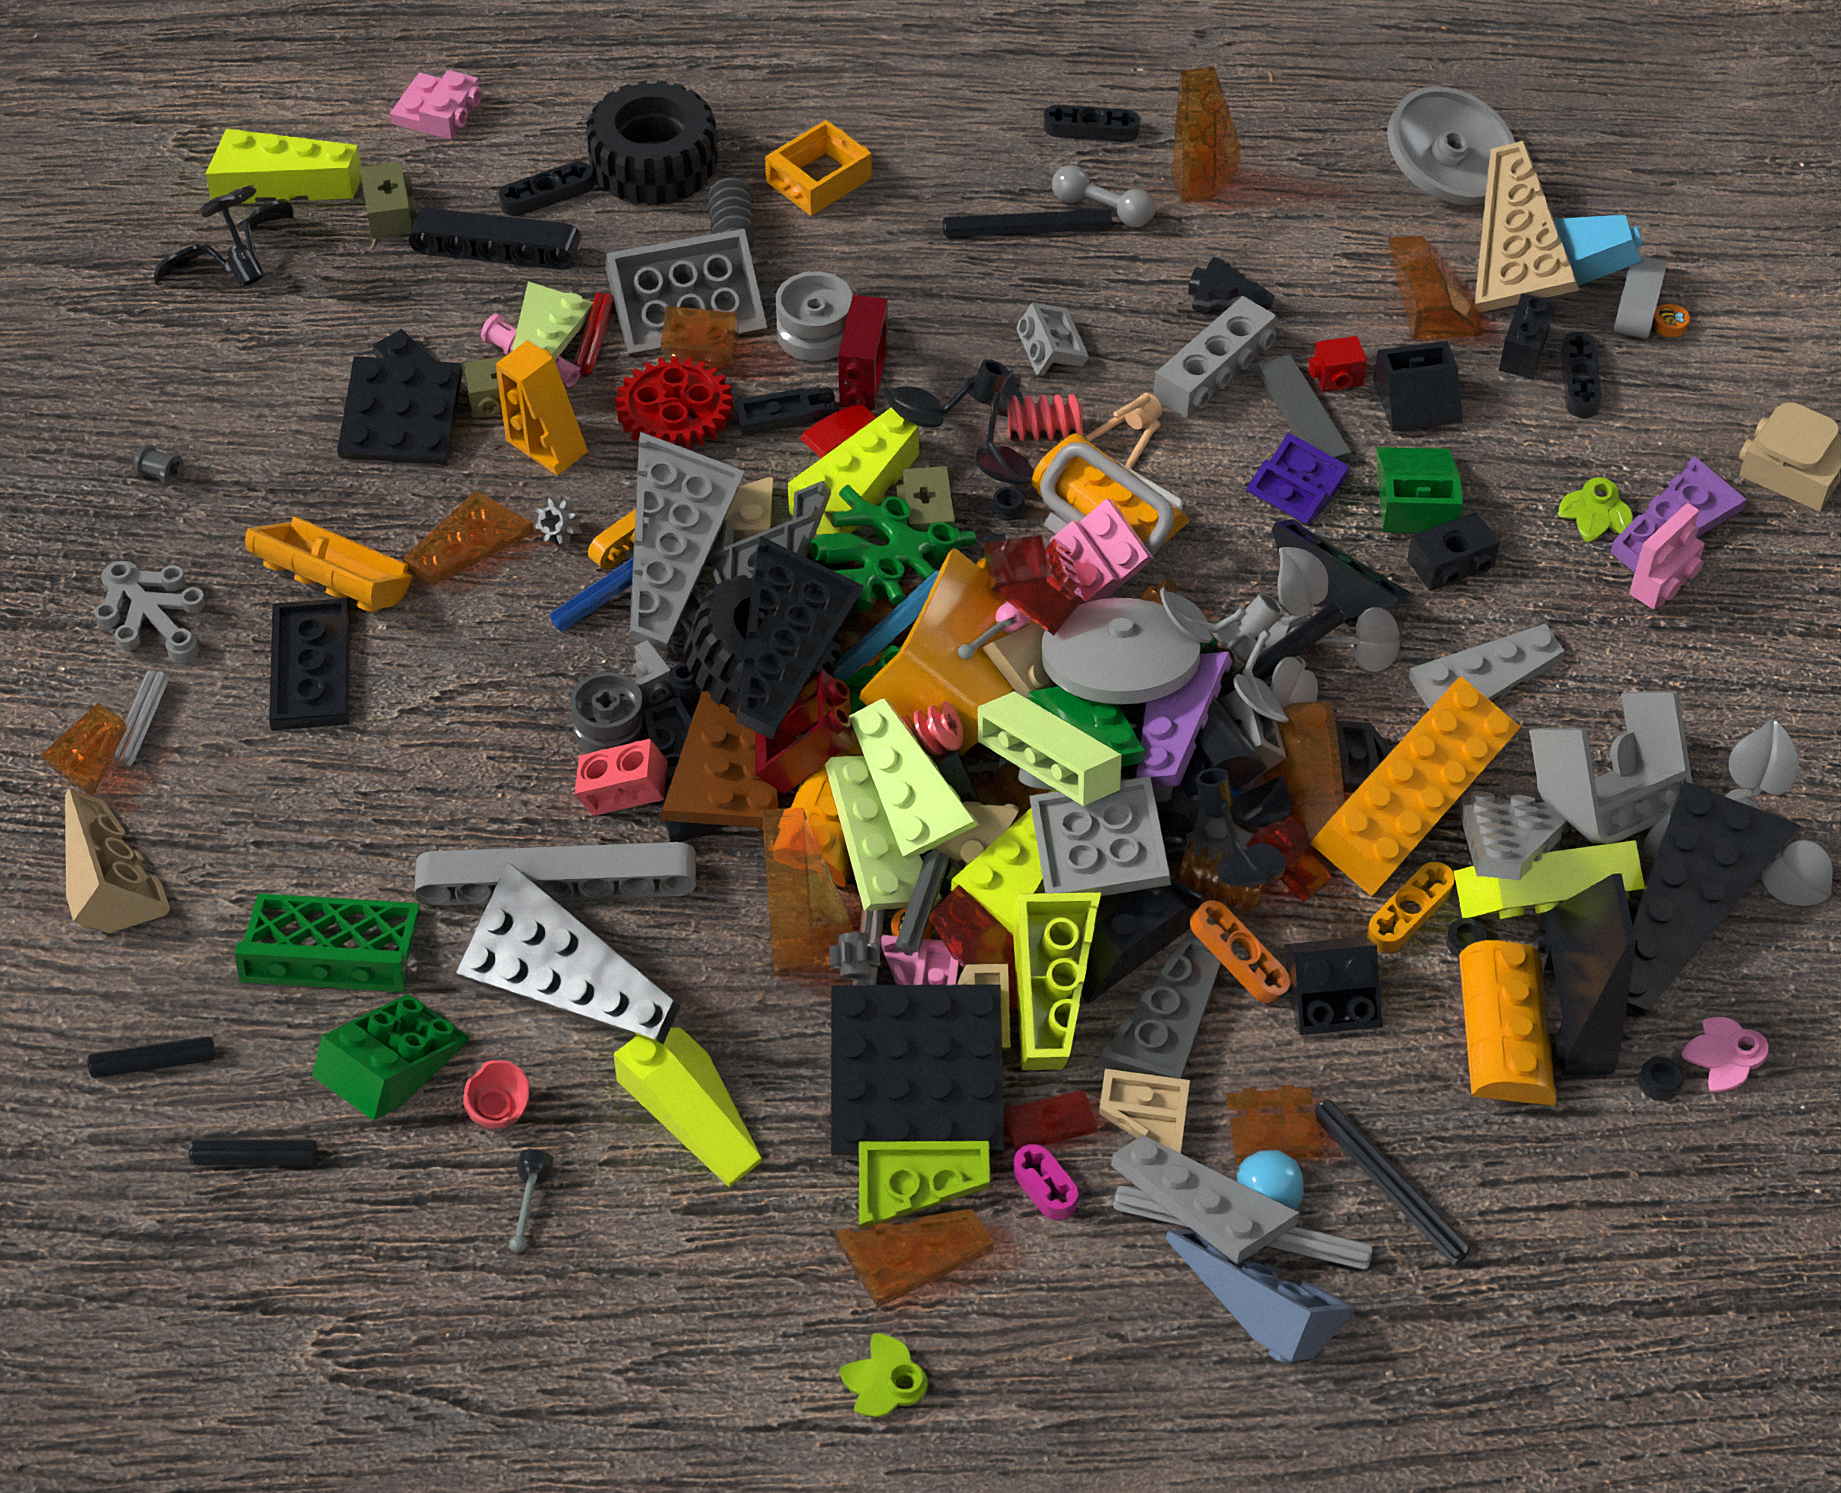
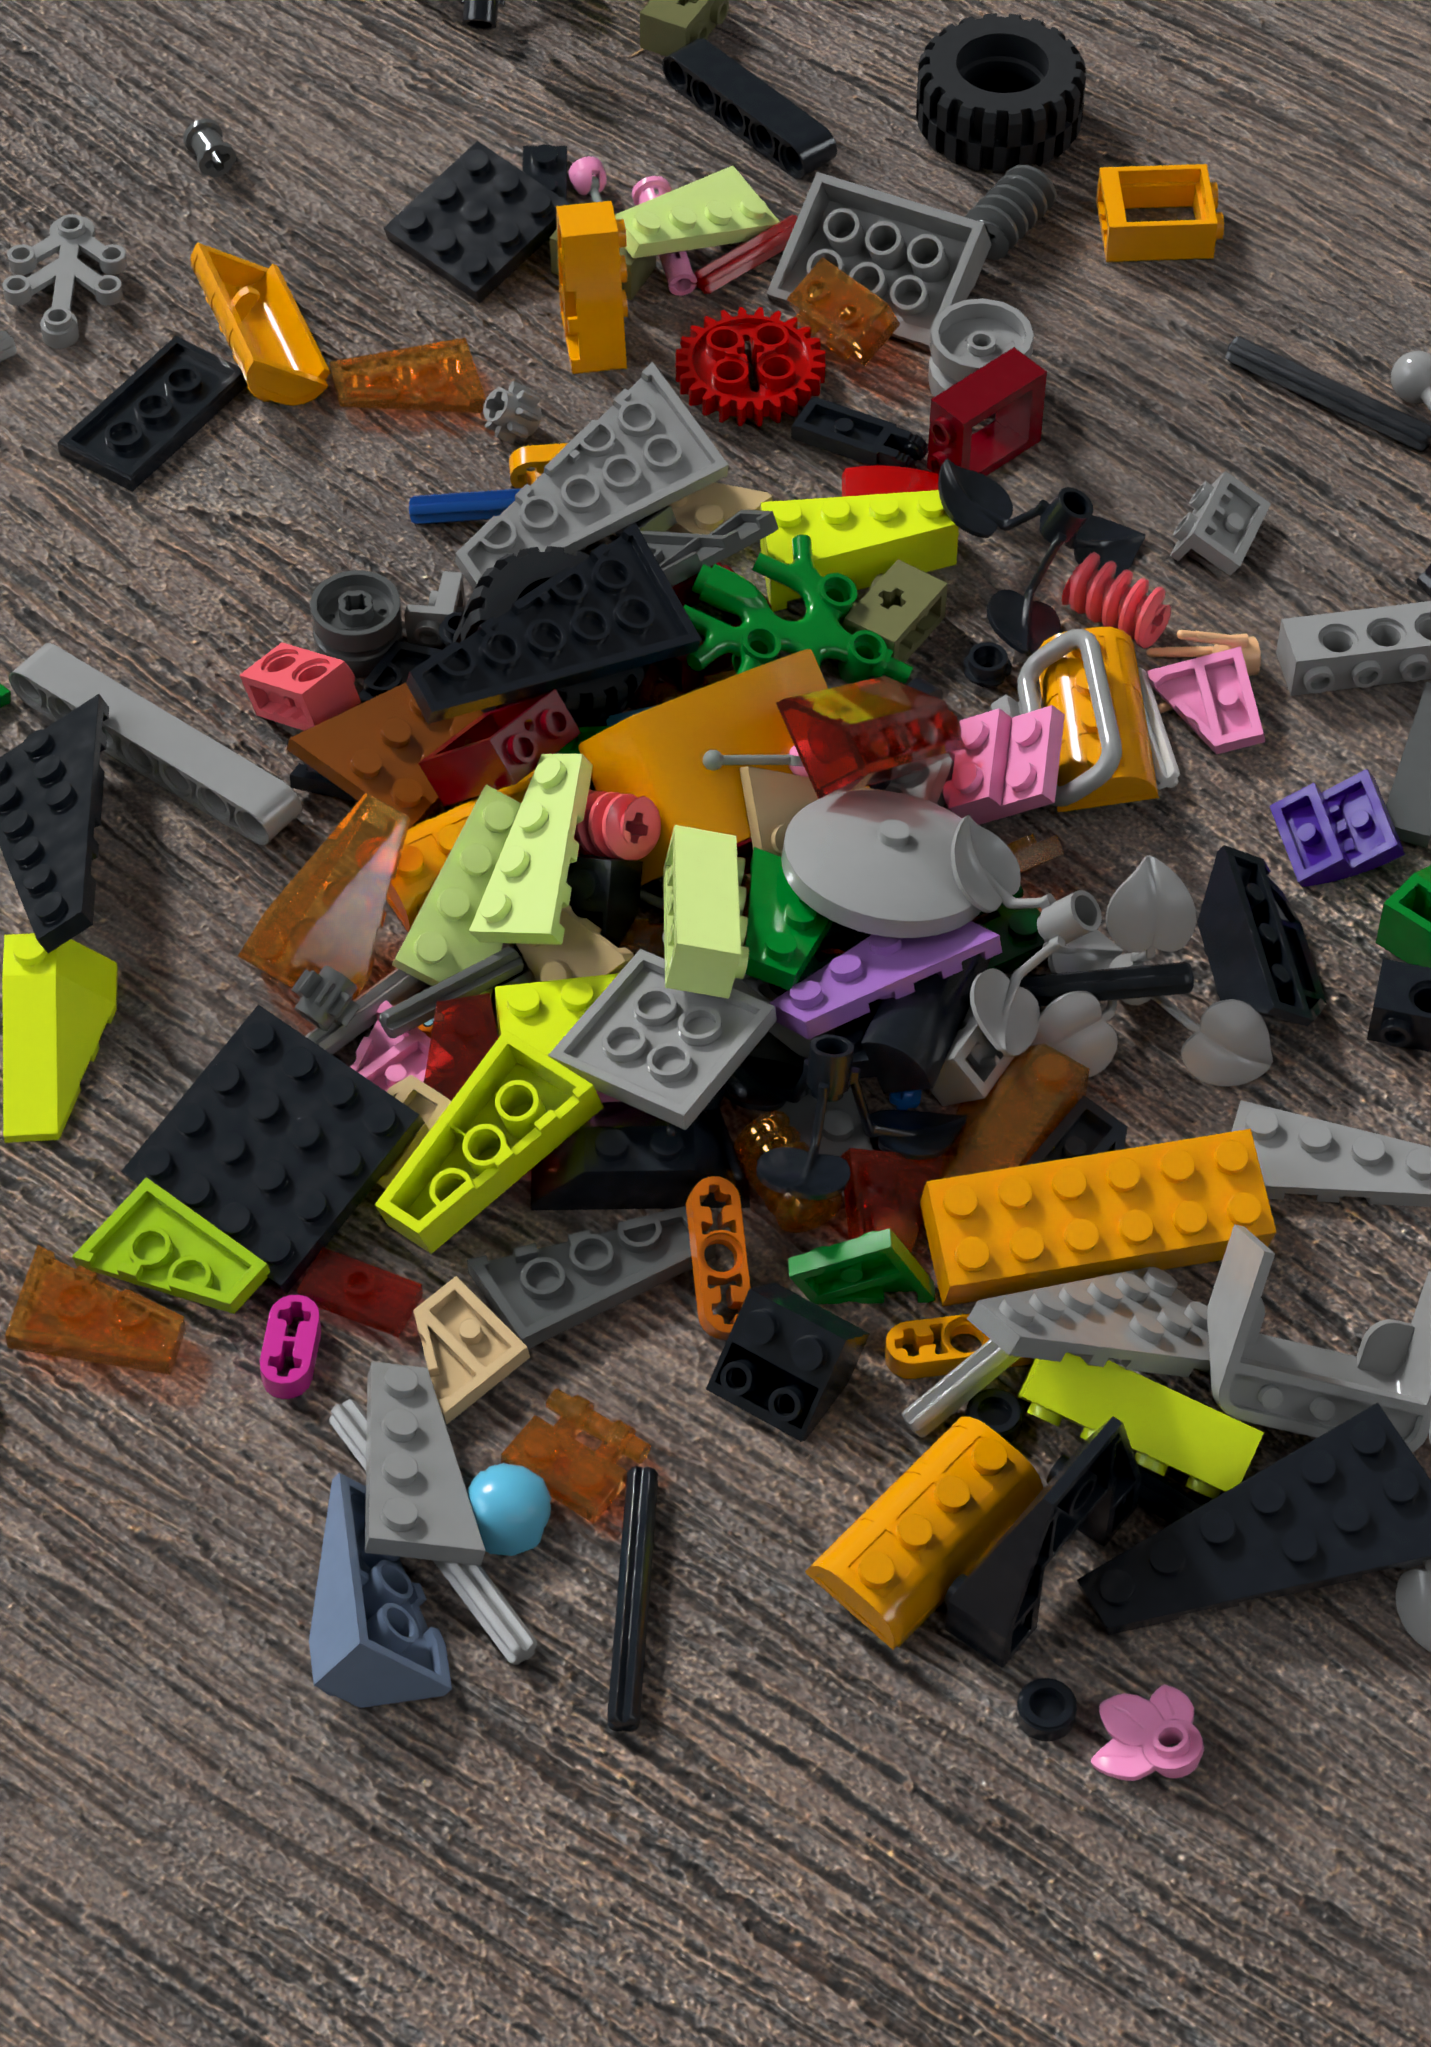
camera: 40 degrees right, 0 degrees up
(440, 342) = (582, 179): none -> bright pink hinge
(576, 180) = (817, 78): black beam -> none
(1159, 444) = (1213, 698): none -> bright pink wing
(1318, 908) = (860, 1271): none -> green wing
(1441, 920) = (957, 1388): none -> light grey axle

